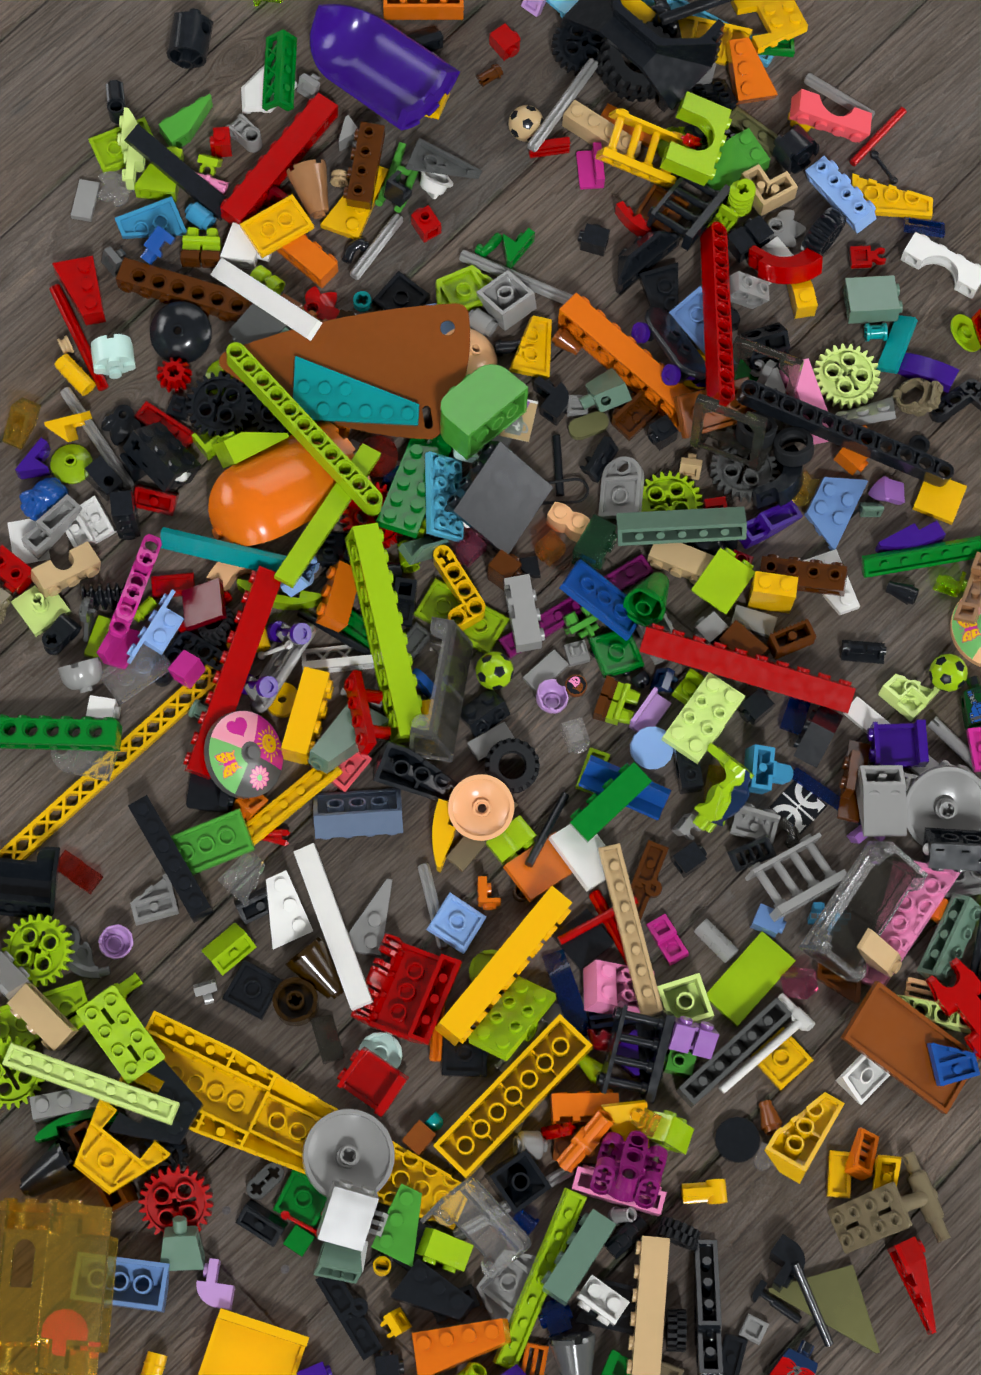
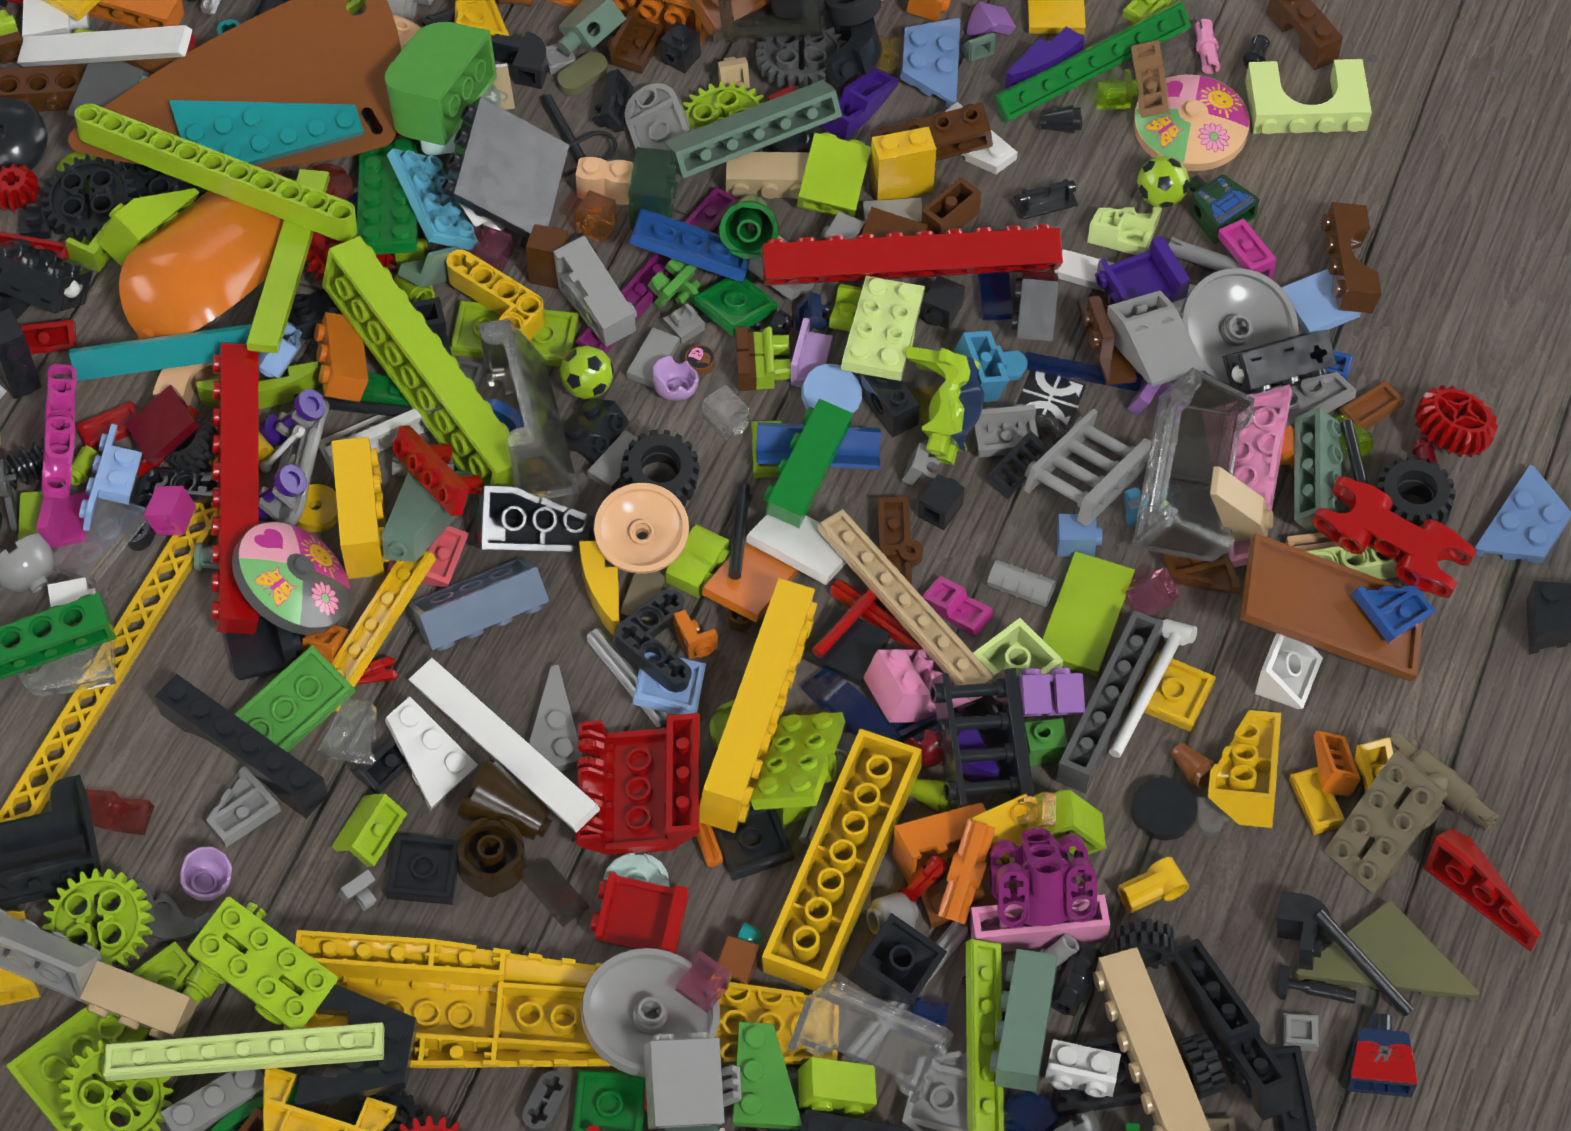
camera: 20 degrees left, 15 degrees down
(387, 1151) = (704, 982): none -> clear pink panel
(452, 884) = (645, 641): none -> black beam

